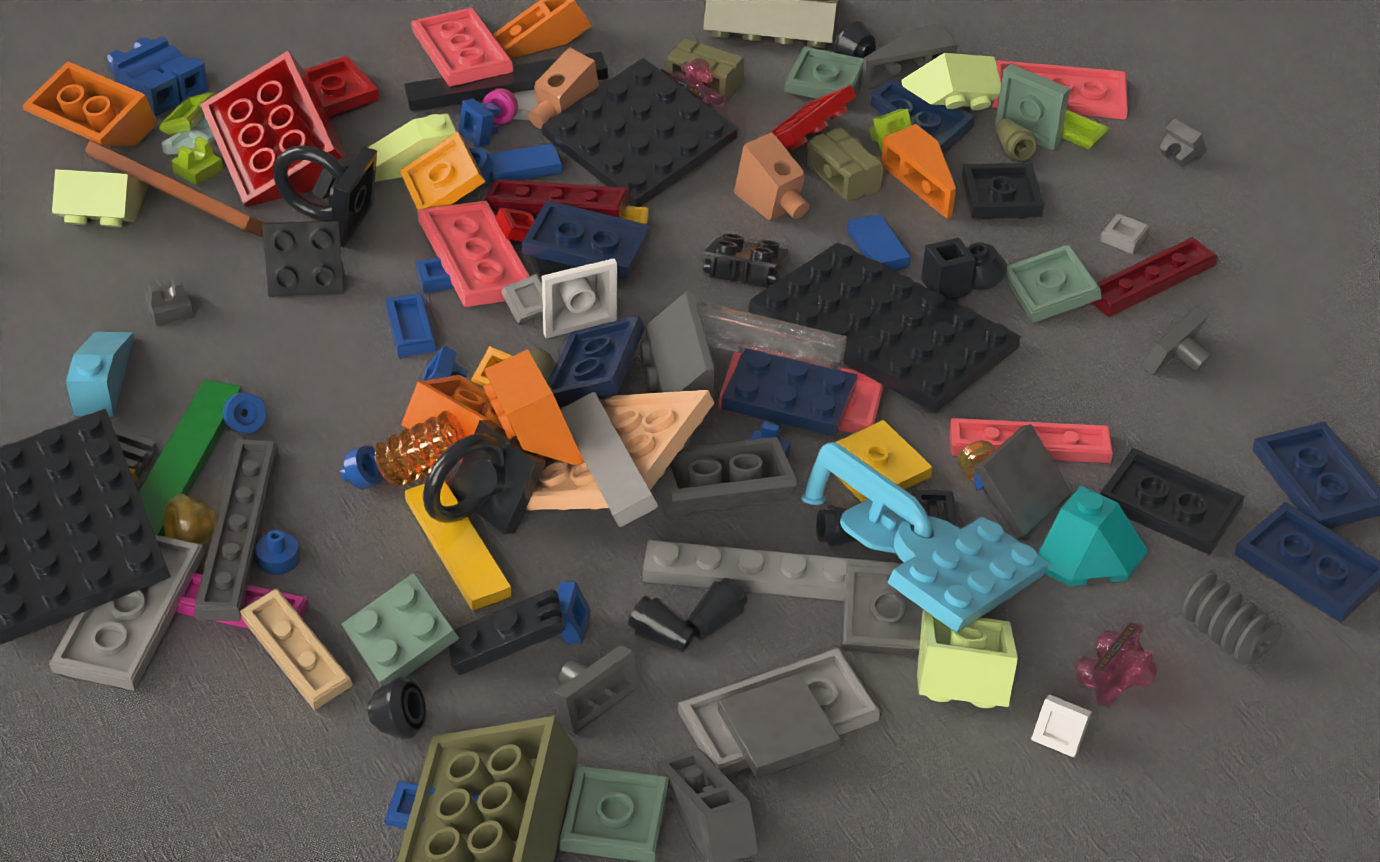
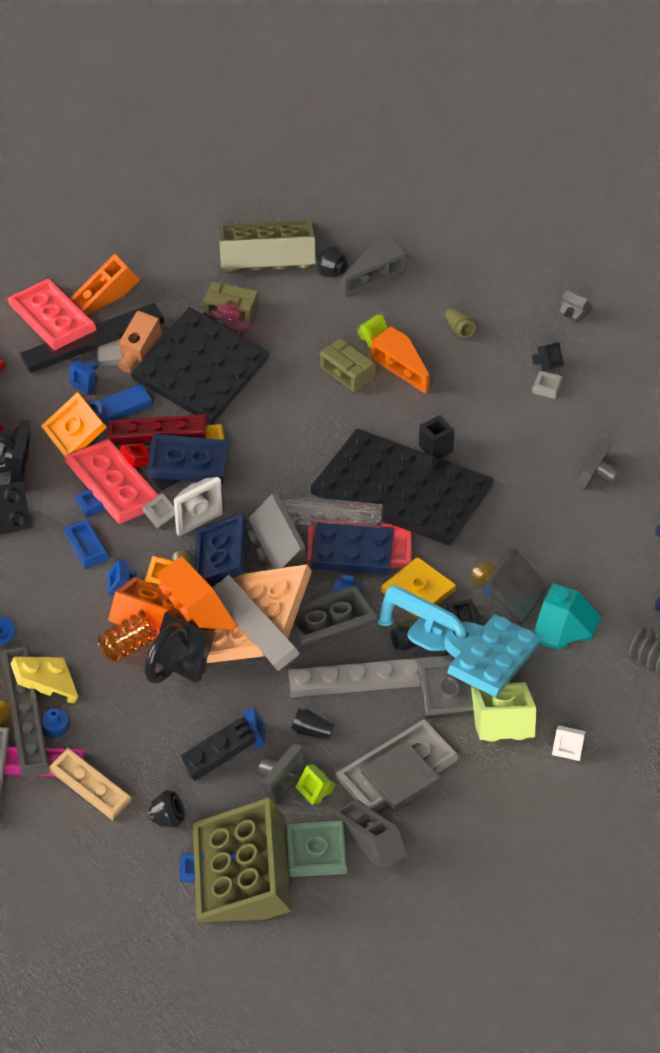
camera: 10 degrees left, 5 degrees up
(284, 483) = (45, 675): none -> light yellow wing
(361, 468) = (90, 655): blue tile -> none
(400, 630) = (152, 760): sand green plate -> none
(410, 143) = (42, 404): yellowish green slope -> none
(461, 552) = (169, 697): yellow tile -> none
(506, 102) = (98, 356): dark pink tile -> none
(640, 714) = (314, 784): none -> lime tile
(717, 607) = (343, 707): black cone -> none
(733, 247) = (287, 447): black hinge -> none
(771, 179) = (302, 389): nougat torso -> none
(813, 117) = (311, 338): red plate -> none
(822, 73) = (316, 292): sand green plate -> none
(878, 241) = (383, 422): blue tile -> none
(941, 123) = (397, 313): dark blue wing -> none
(956, 81) = (412, 287): yellowish green slope -> none
(988, 267) = (463, 429): black cone -> none
(1002, 190) = (459, 366): black plate -> none
(1034, 104) = (468, 296): sand green plate -> none
(1052, 283) = (506, 434): sand green tile -> none
(1061, 440) = (531, 549): coral tile -> none
(1082, 130) = (495, 303): lime tile -> none
(1091, 90) = (482, 273): coral tile -> none
(1120, 664) = (598, 697): clear pink hips -> none
(1133, 196) = (549, 356): none -> black tile
(1153, 276) = (570, 415): dark red tile -> none
(1173, 500) = (610, 579): black tile -> none

